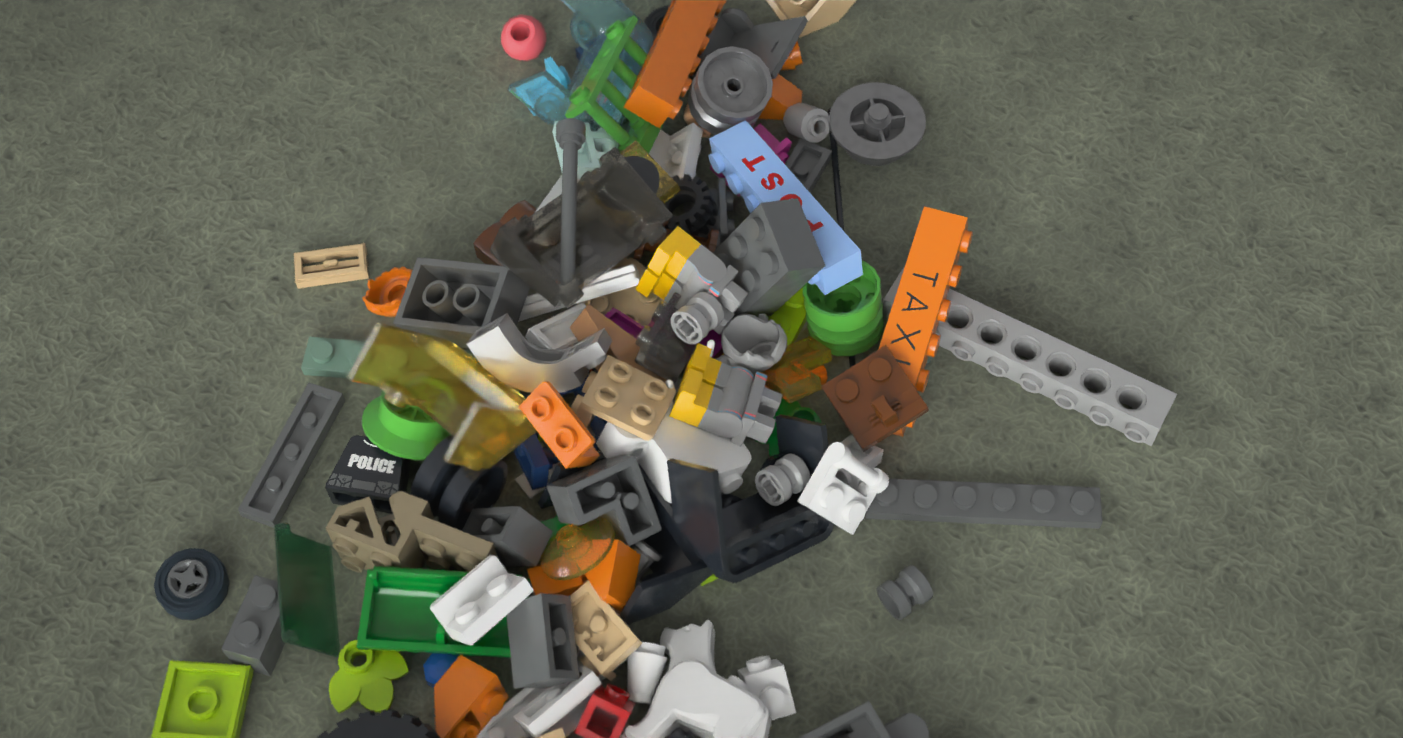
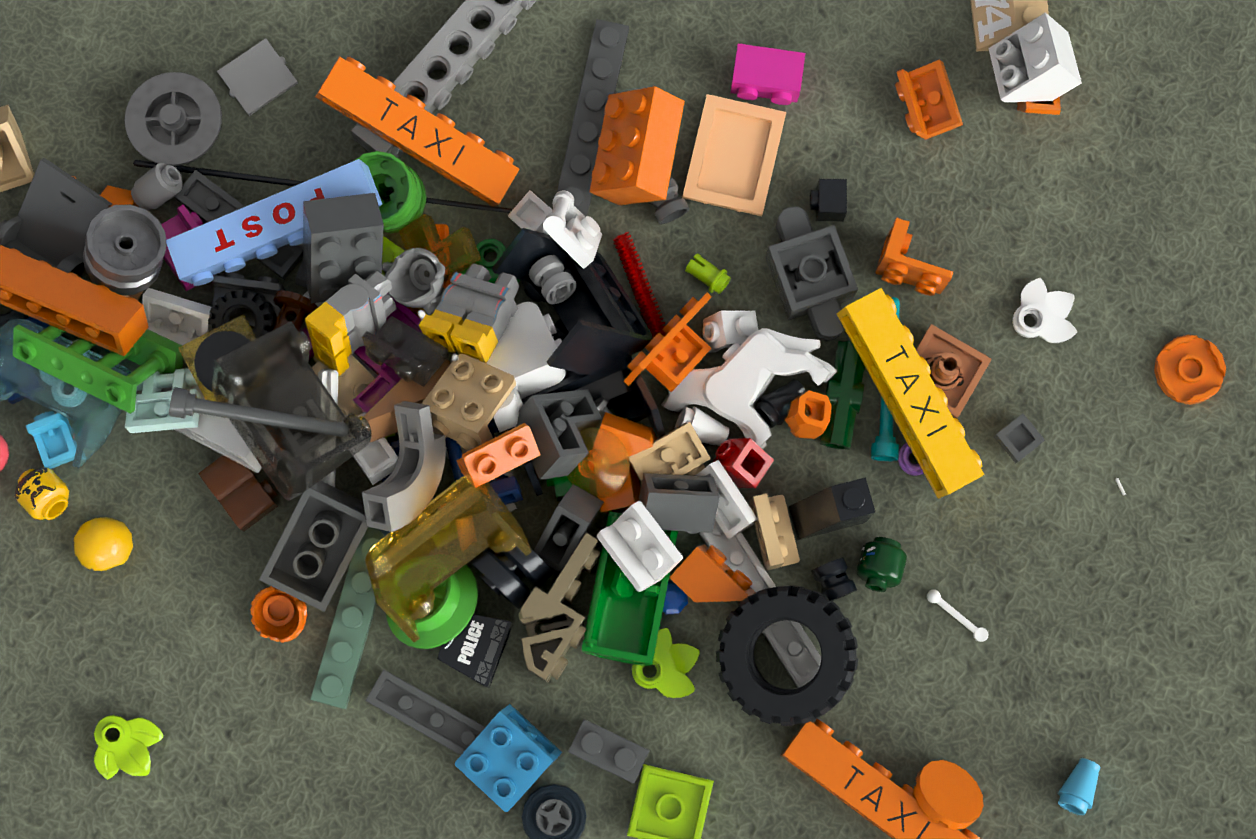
camera: 85 degrees left, 20 degrees up
(245, 523) = (507, 757): none -> dark azure bracket
(255, 196) = (127, 751): none -> lime plate
(306, 592) = (587, 708): clear green piece -> none
(331, 270) = (212, 705): tan tile -> none
(451, 145) = (103, 543): none -> yellow hair
(489, 88) = (42, 493): none -> yellow head
(695, 319) = (392, 317): light grey wheel -> none
(722, 616) = (675, 354): none -> orange bracket
(785, 590) = (639, 284): none -> red axle
(825, 660) = (708, 274): none -> lime pin
(875, 398) = (490, 184): reddish brown hinge -> none
(944, 189) = (257, 77): none -> light grey piece
(957, 540) = (637, 146): none -> orange brick
(980, 662) = (734, 155): none -> light nougat piece
(1088, 681) = (767, 74): none -> dark pink brick

